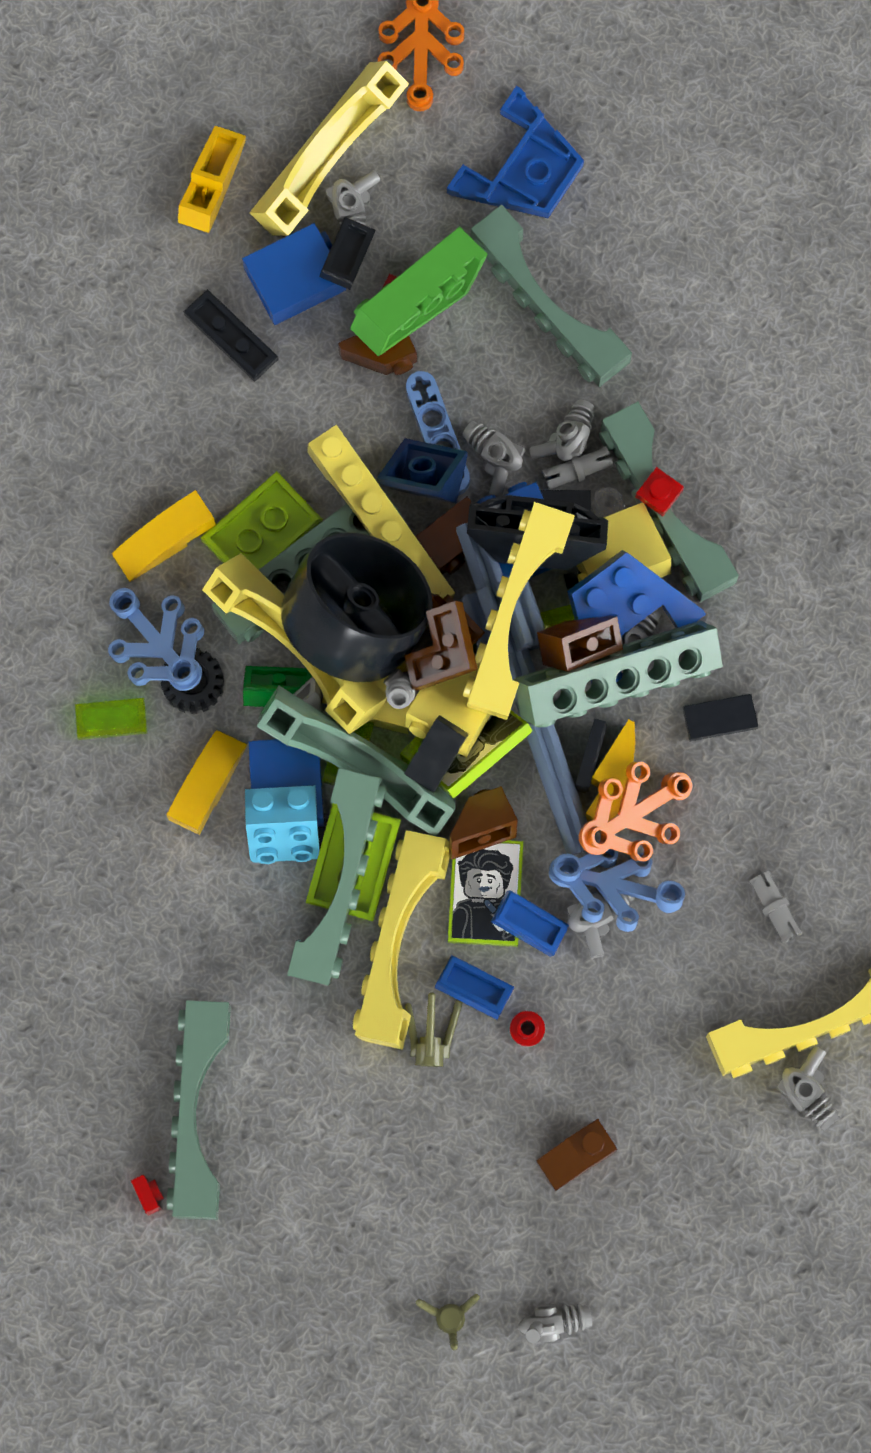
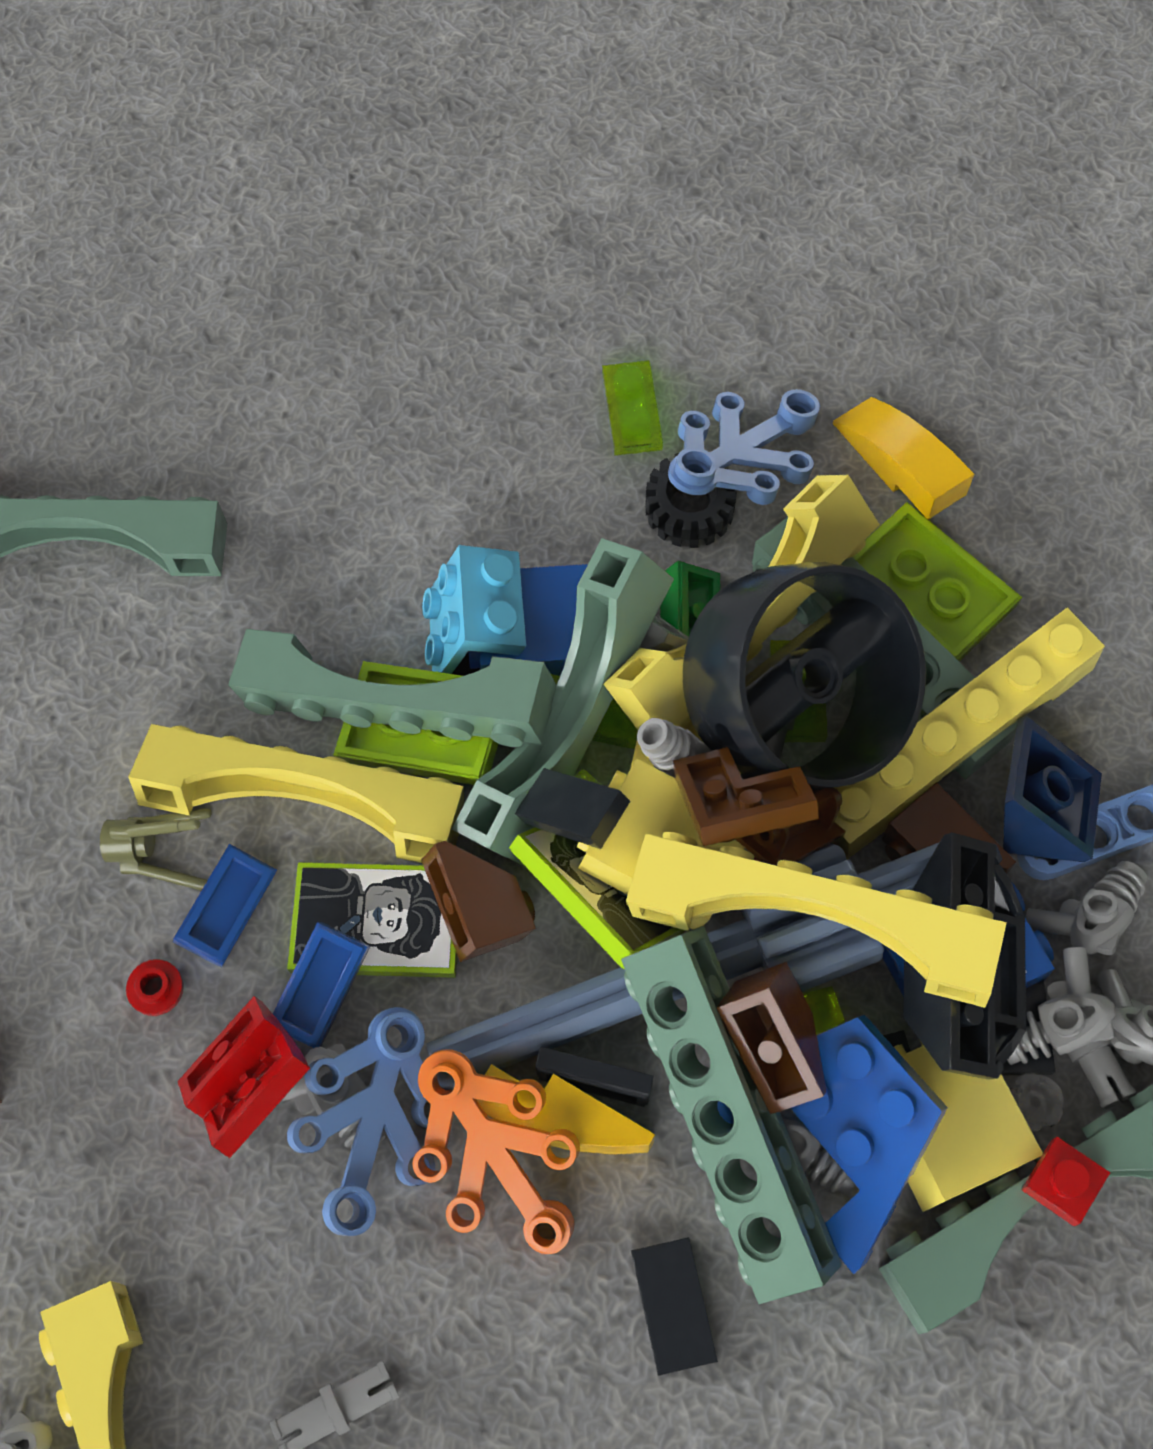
camera: 90 degrees right, 10 degrees down
(206, 782) = (532, 516): yellow slope -> none
(563, 475) = (1071, 1016): none -> light grey piece
(588, 964) = (242, 1076): none -> red slope

